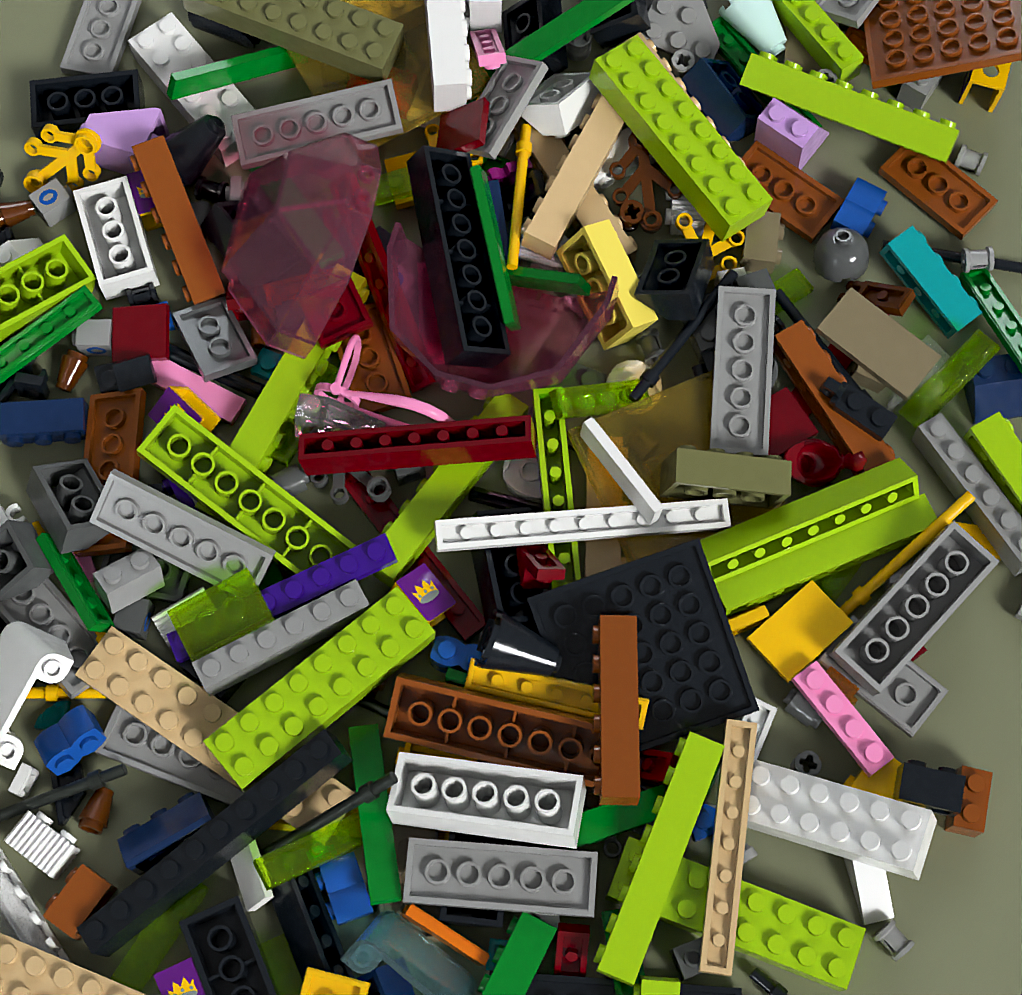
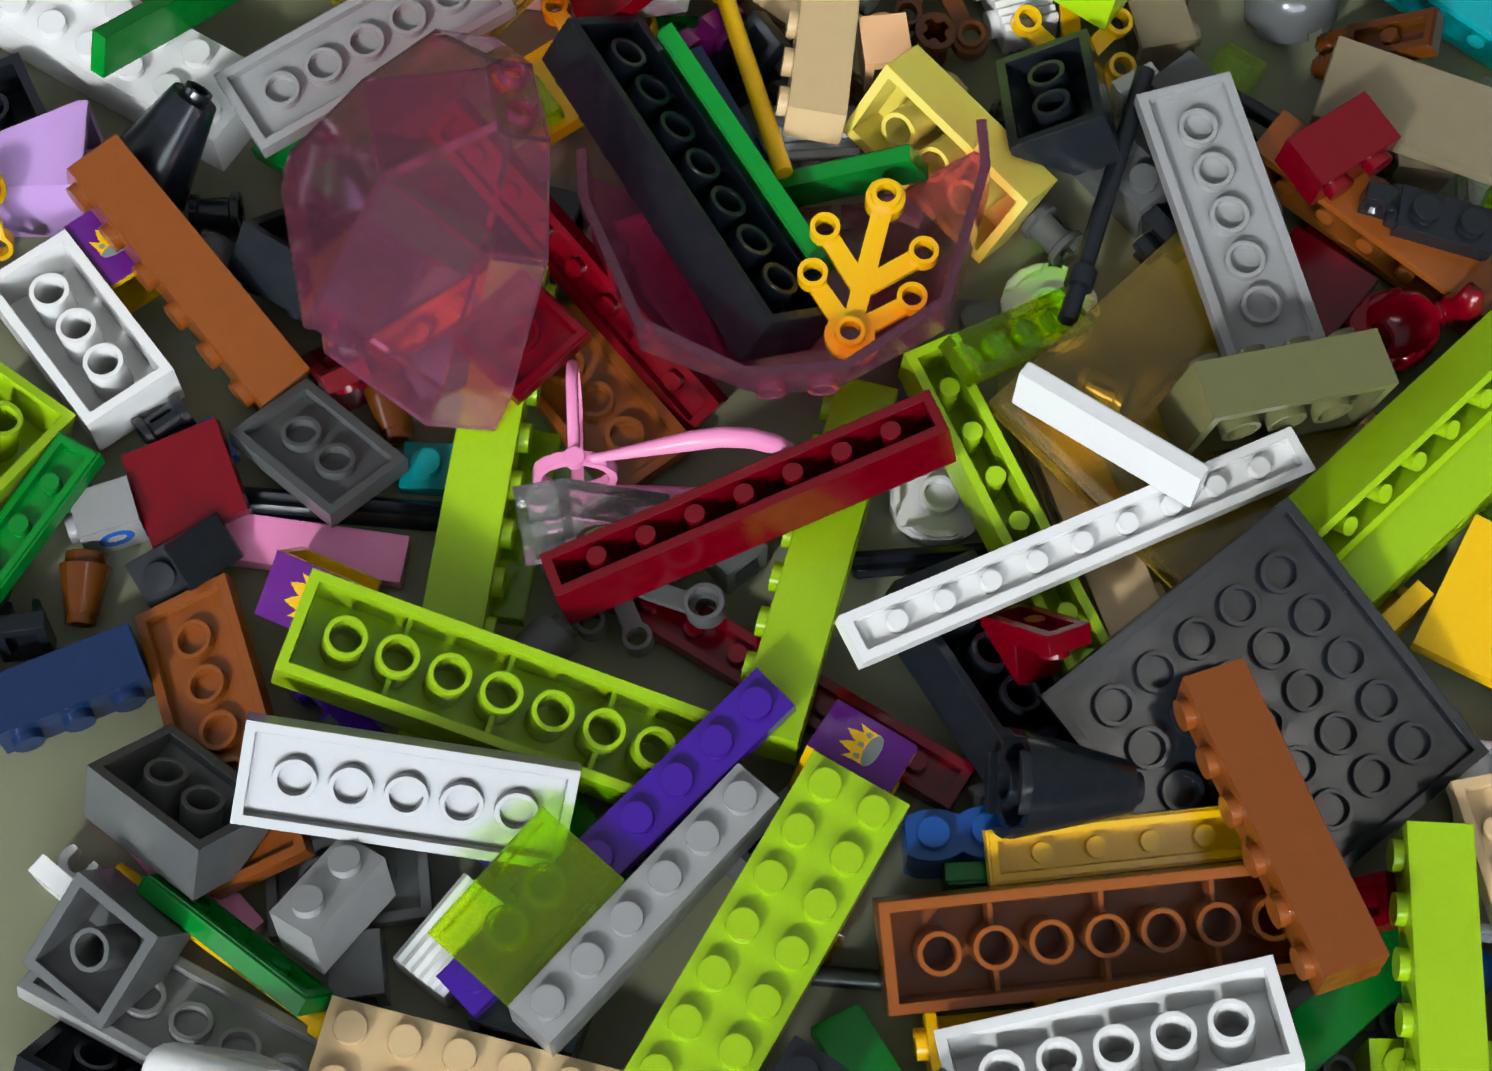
camera: 20 degrees left, 5 degrees down
(234, 191) = (260, 199): light grey plate -> none
(529, 339) = (865, 276): none -> yellow plant
(596, 208) = (879, 41): none -> light nougat brick
(819, 353) = (1338, 149): none -> dark red brick

